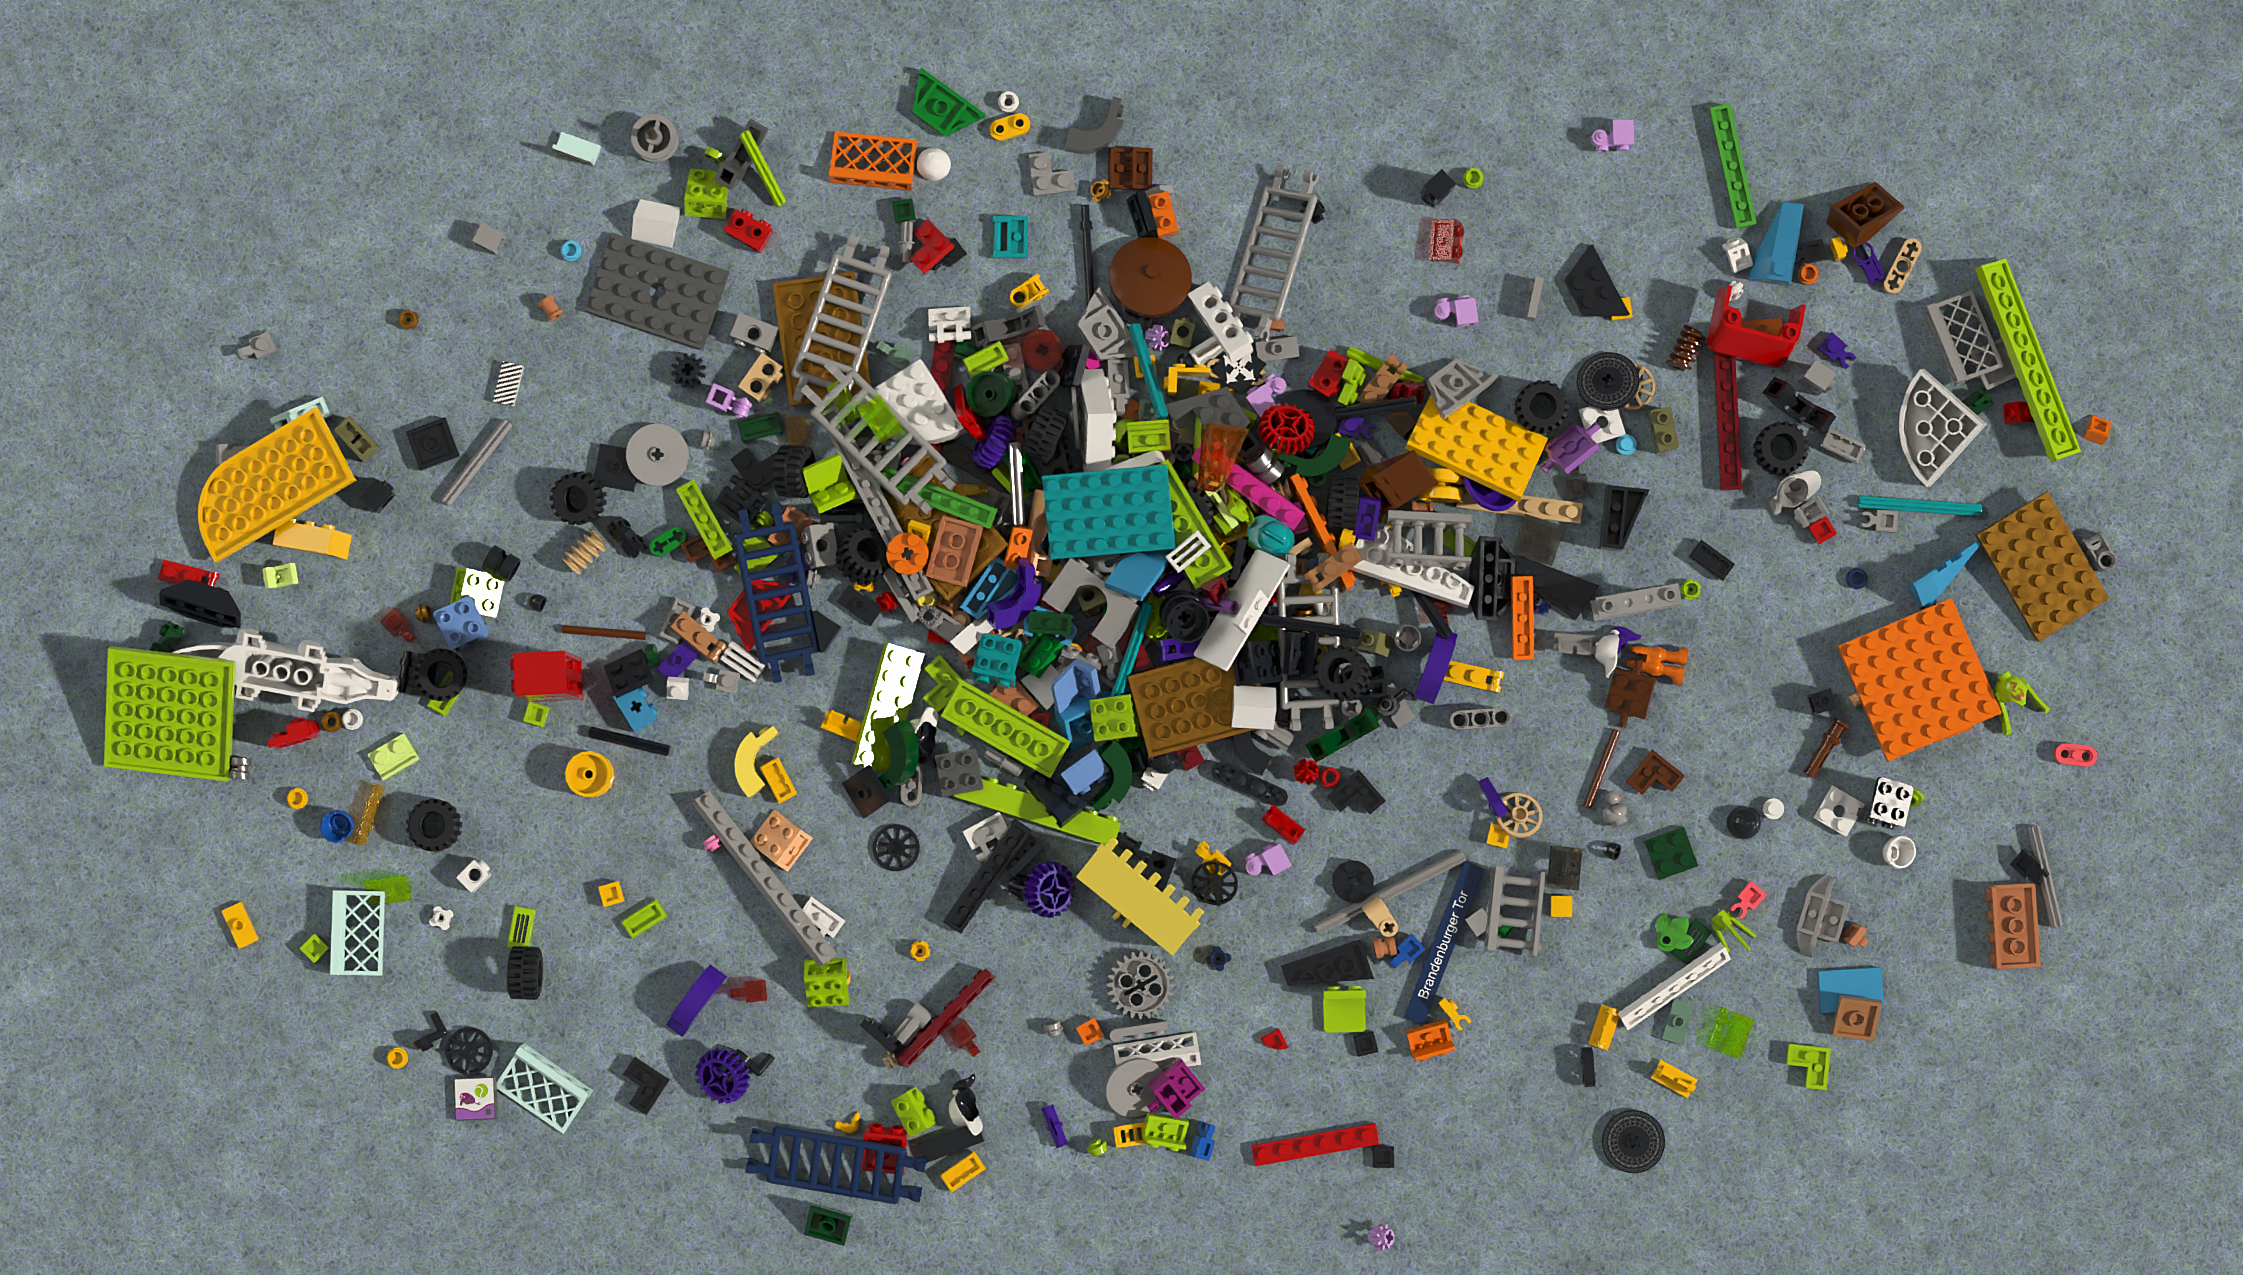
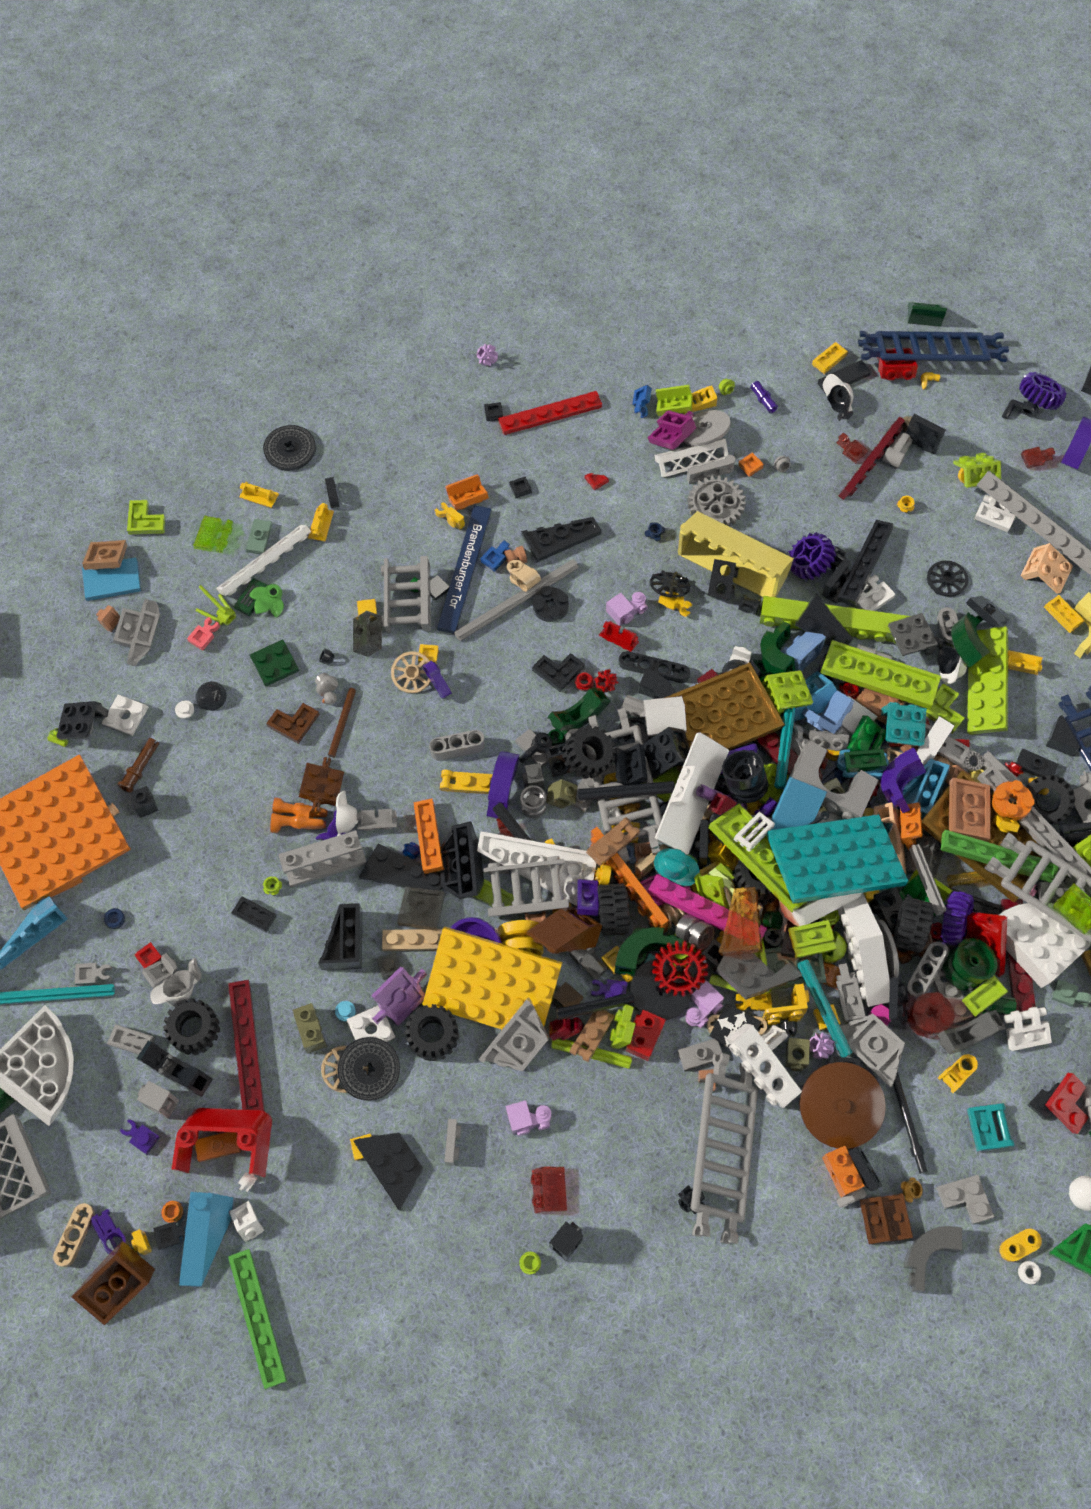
camera: 175 degrees right, 20 degrees down
(913, 1112) = (879, 389): lime bracket -> none
(1344, 1009) = (542, 507): lime bracket -> none
(1402, 668) = (533, 776): none -> dark grey brick
(1620, 138) = (379, 1330): lavender brick -> none
(1685, 349) = (291, 1112): reddish brown piece -> none
(1899, 852) = (70, 687): white piece -> none

